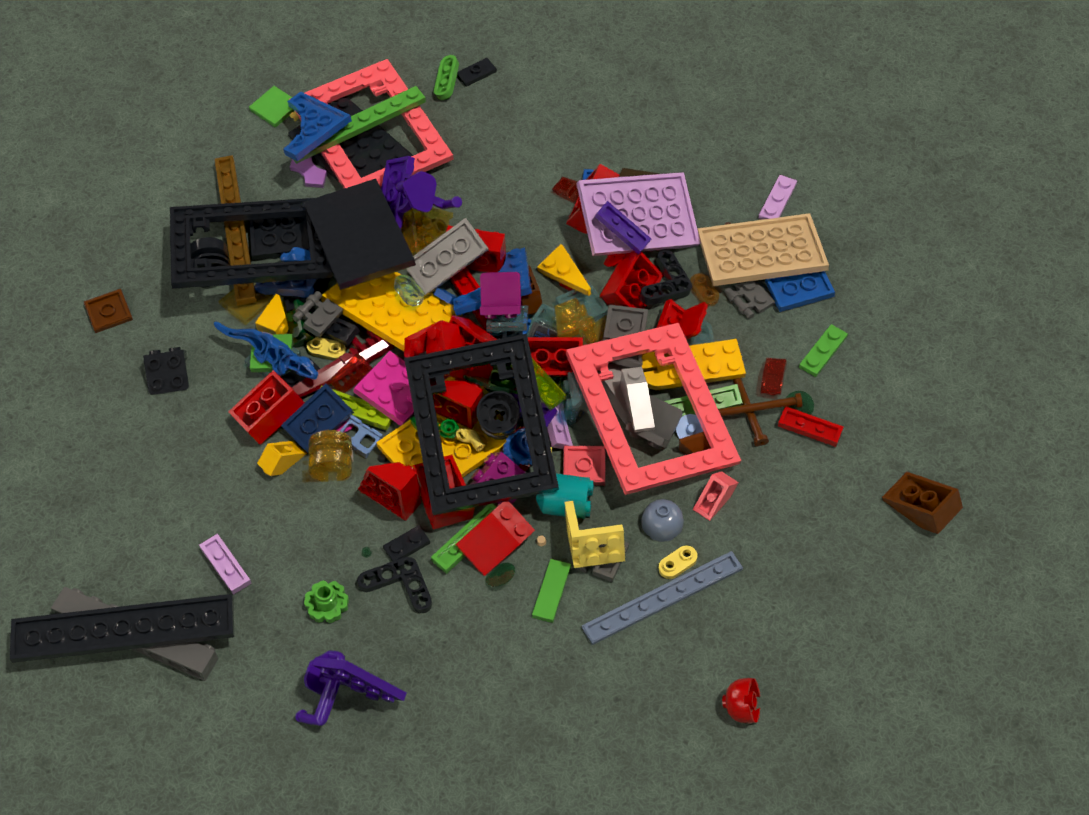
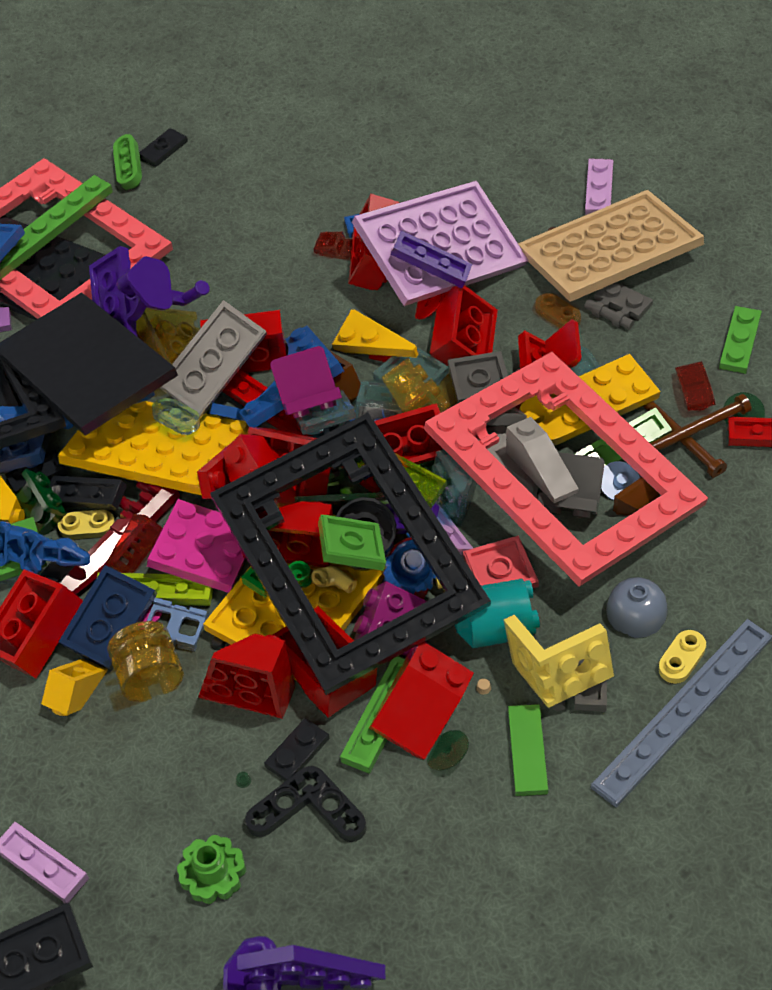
camera: 15 degrees left, 5 degrees down
(322, 318) = (70, 480): dark grey plate -> none
(483, 420) = (351, 542): none -> bright green tile
(672, 283) = (523, 314): black beam -> none
(715, 494) = (692, 554): coral slope -> none
(799, 289) = (676, 278): blue plate -> none

